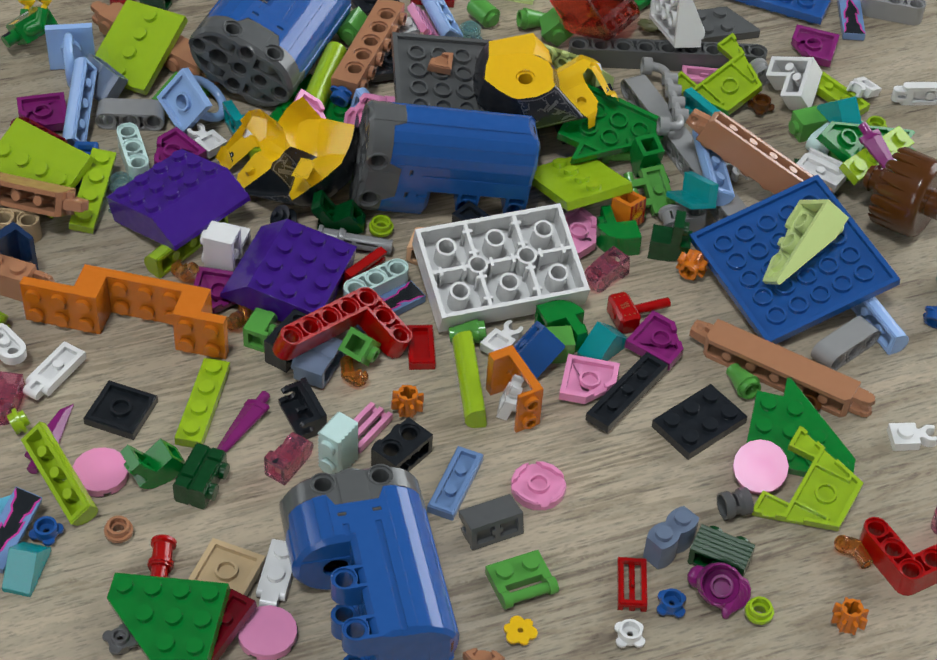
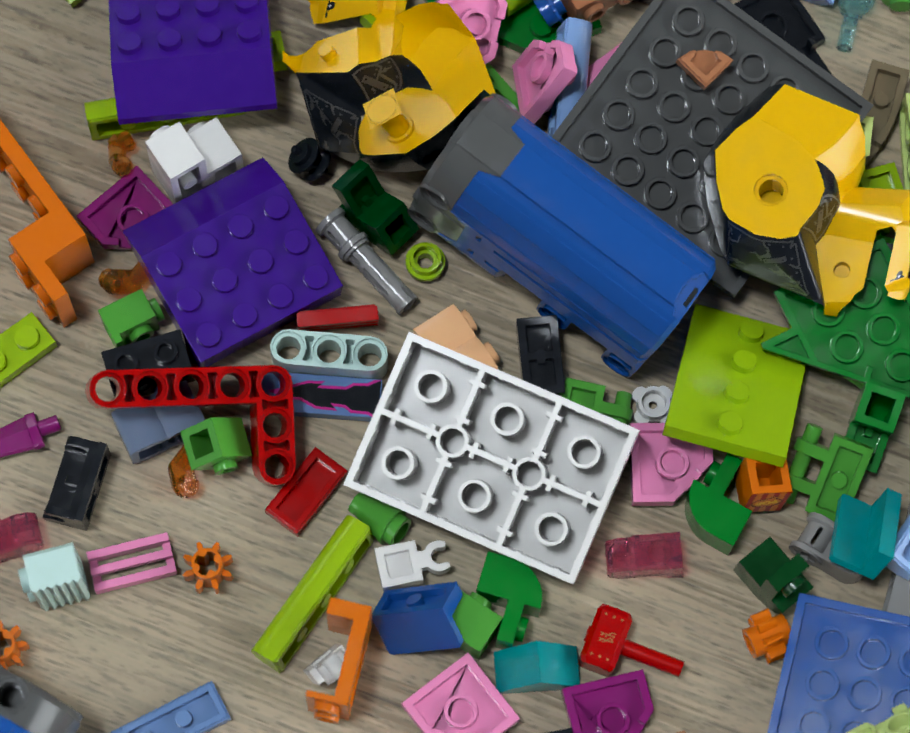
camera: 40 degrees right, 25 degrees up
(403, 446) = (136, 646): black brick -> none

